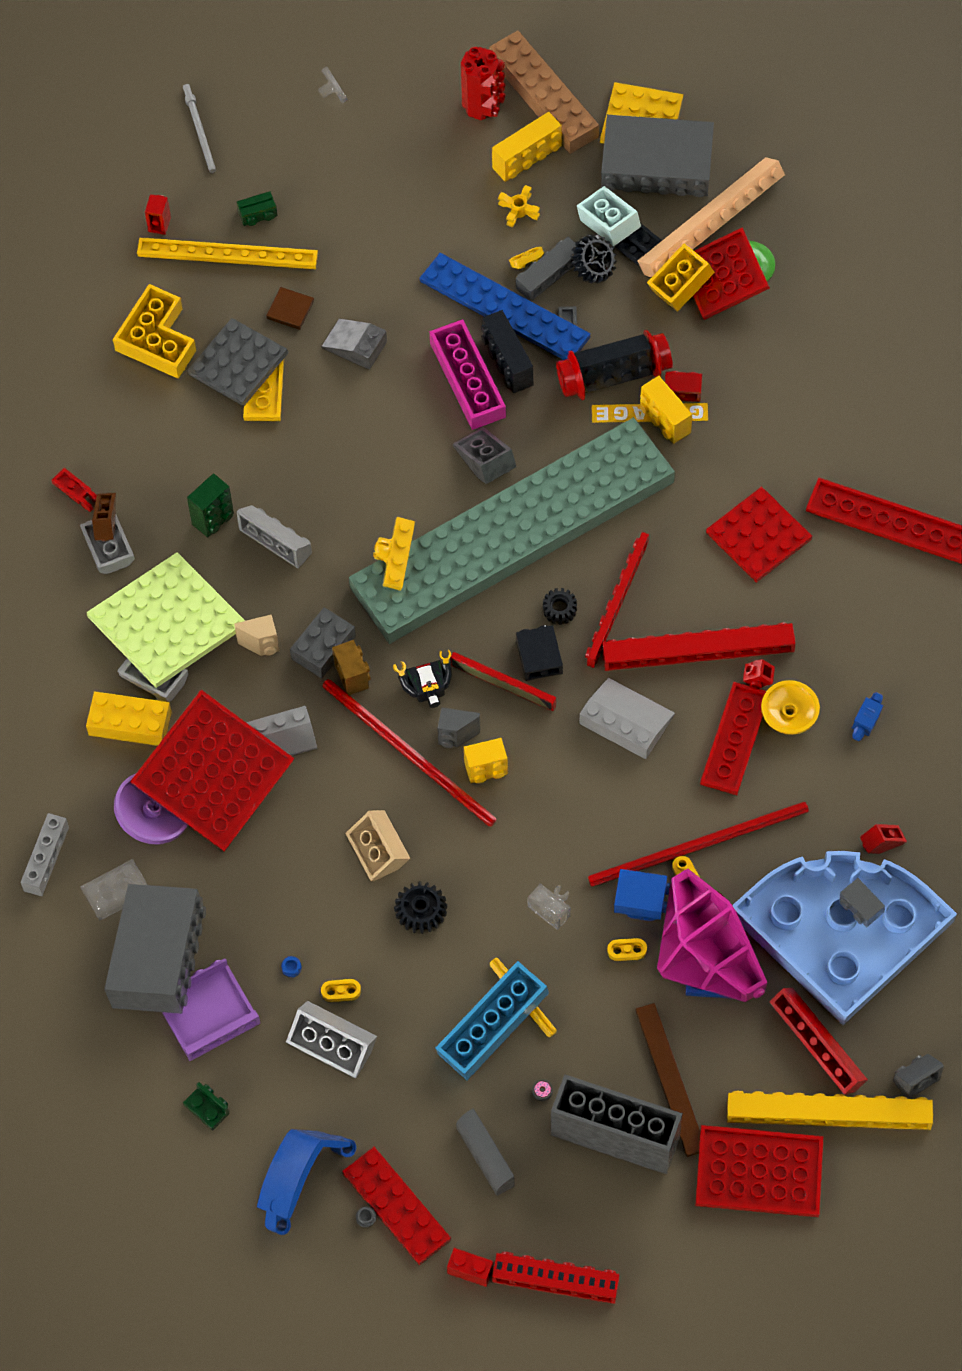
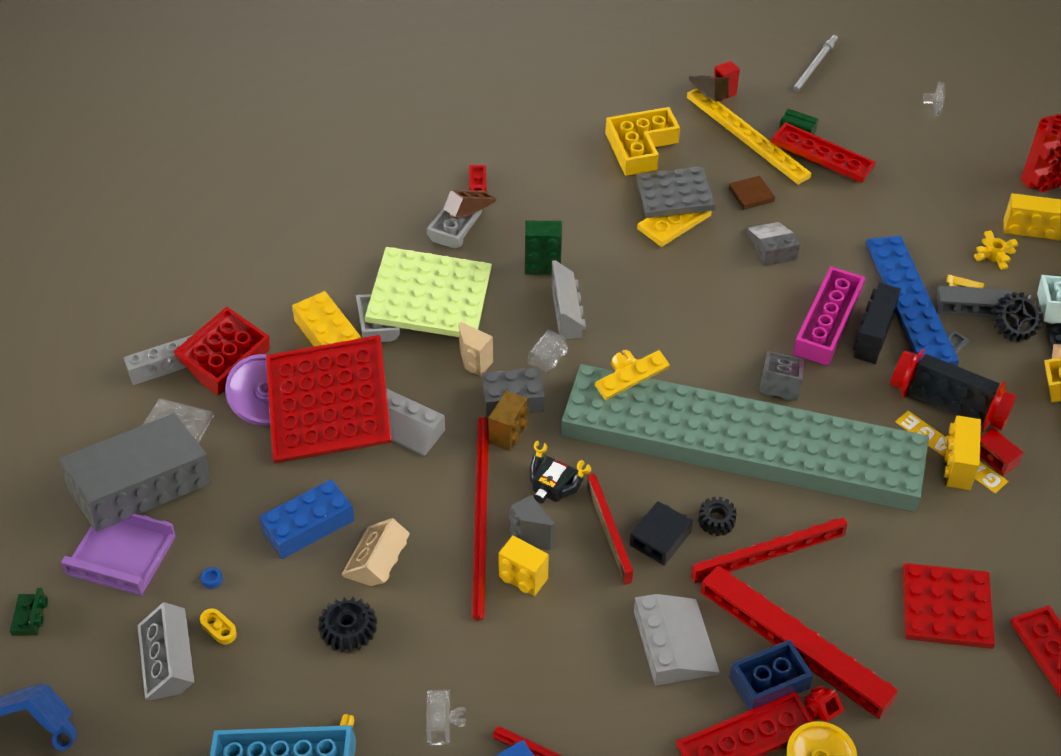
camera: 45 degrees right, 15 degrees down
(83, 806) = (220, 346): none -> red slope
(153, 231) = (711, 86): none -> dark brown slope
(303, 867) = (306, 518): none -> blue brick
(306, 221) = (823, 152): none -> red plate
(306, 587) = (547, 351): none -> clear brick
(710, 686) = (770, 675): none -> dark blue brick

